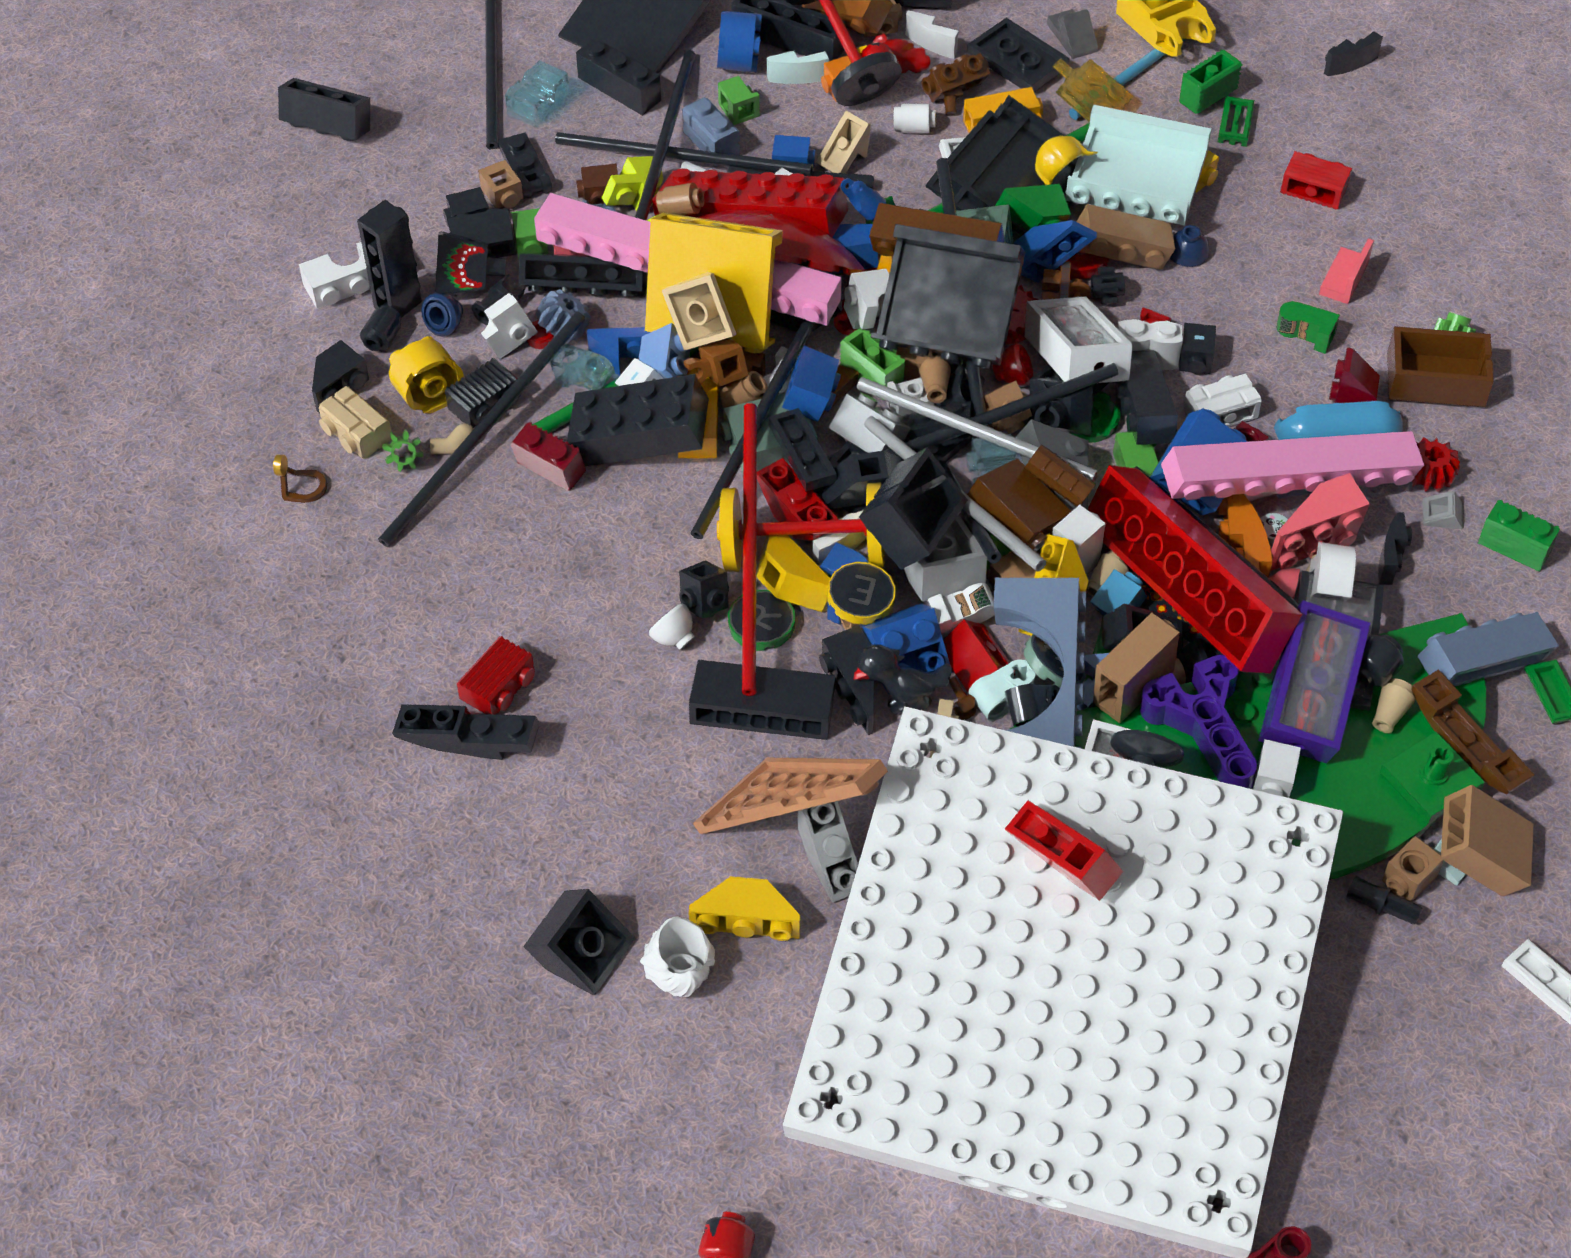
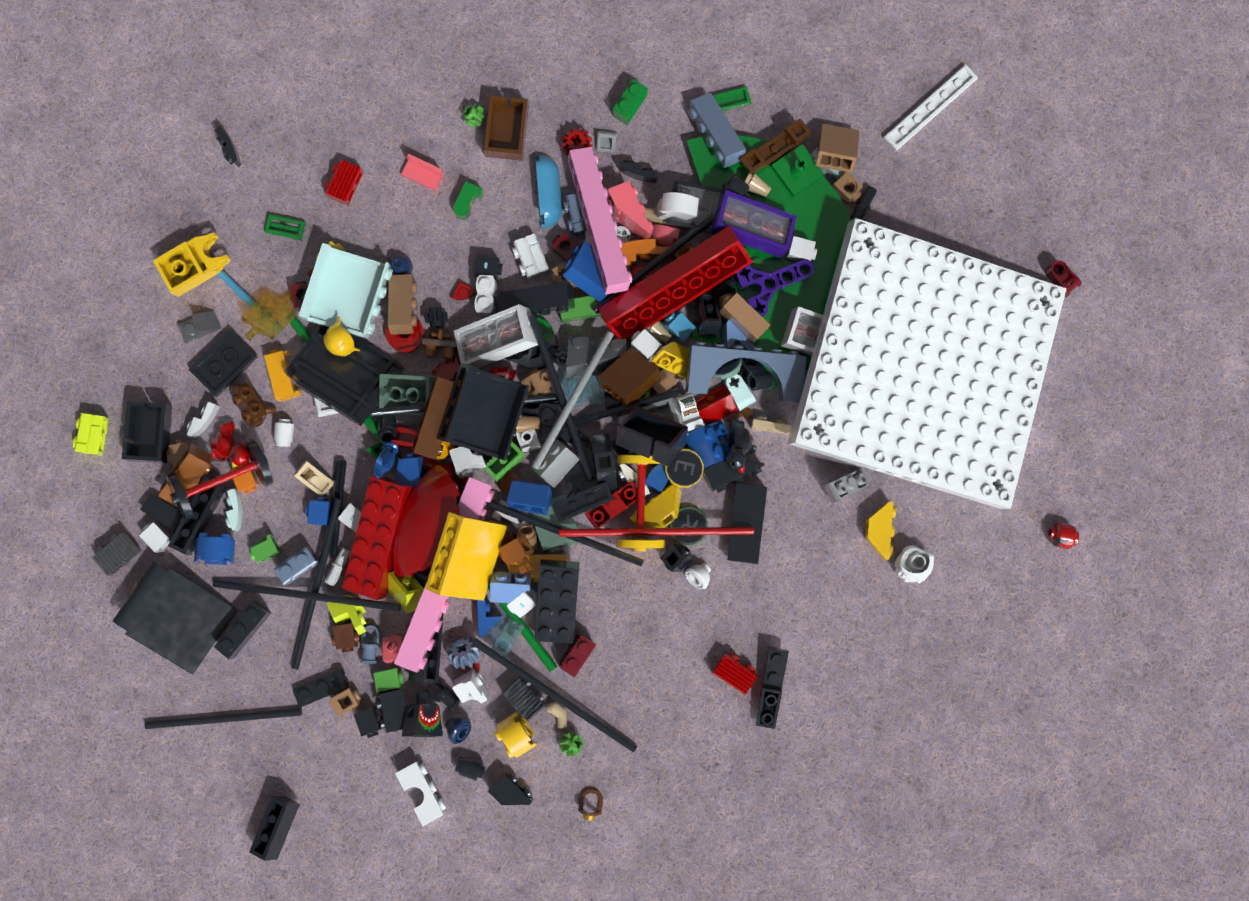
camera: 95 degrees left, 30 degrees up
(354, 423) = (547, 776): tan brick -> none
(390, 258) = (435, 764): black brick -> none
(537, 94) = (257, 684): clear light blue brick -> none
(580, 940) = (901, 617): black slope -> none
(680, 199) = (387, 581): medium nougat brick -> none
(698, 311) = (493, 564): tan slope -> none
(789, 786) = (824, 508): nougat wing -> none
(970, 507) = (624, 413): light grey piece -> none
(1035, 205) = (377, 355): green slope -> none
(1051, 246) = (413, 351): blue slope -> none
(1059, 475) = (613, 352): reddish brown axle -> none
(1065, 850) = (885, 361): red slope -> none
(1147, 748) = (819, 315): black dish -> none
(1210, 81) = (257, 240): green brick -> none
(1356, 380) = (522, 179): dark red slope -> none

